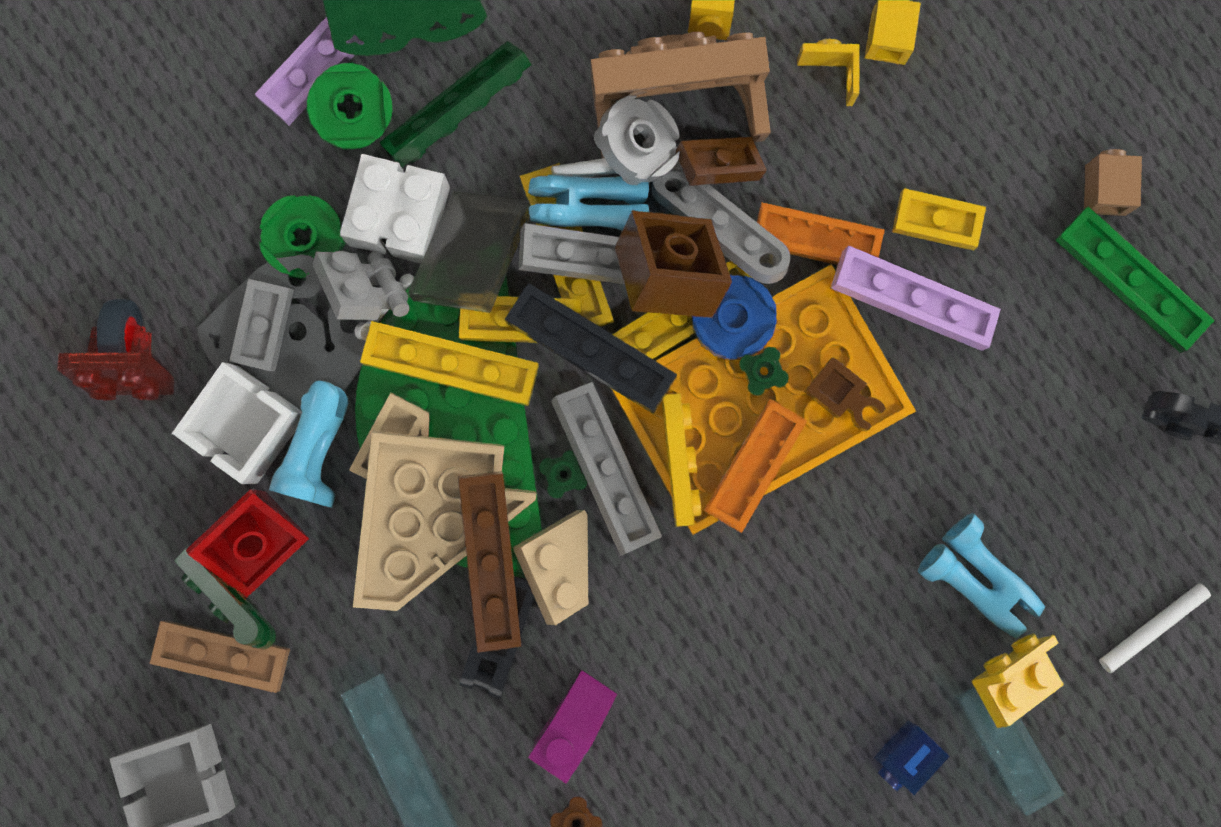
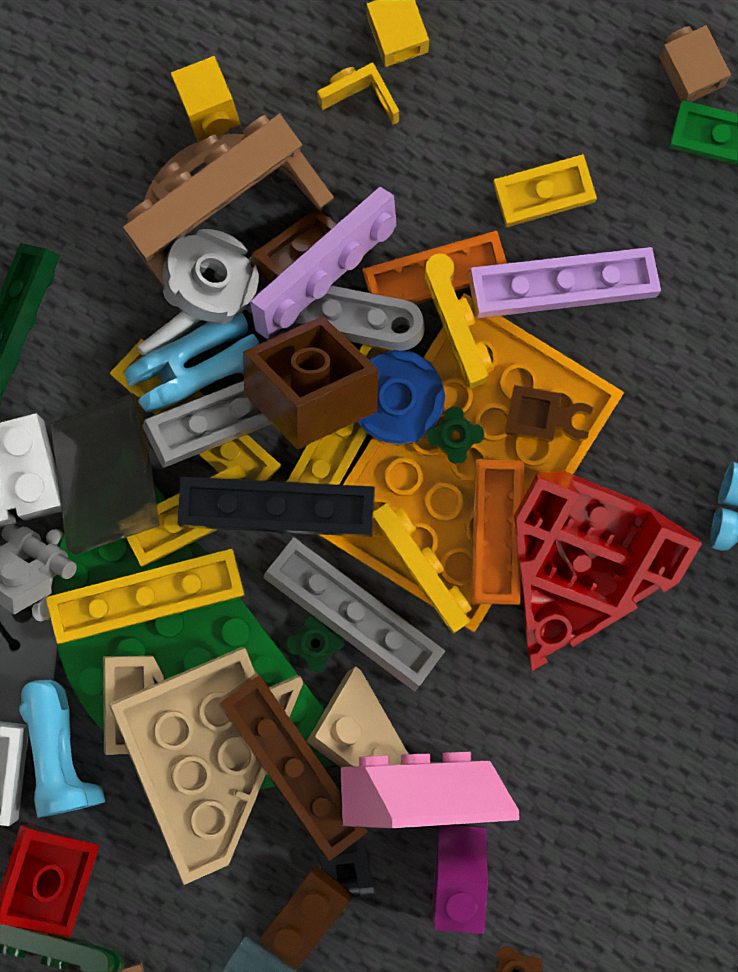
camera: 30 degrees left, 0 degrees up
(436, 686) = (306, 917): none -> reddish brown plate
(582, 641) = (423, 792): none -> bright pink slope
(733, 179) = (324, 263): none -> lavender plate
(814, 279) = (456, 319): none -> yellow plate
(816, 527) = (589, 559): none -> red wedge

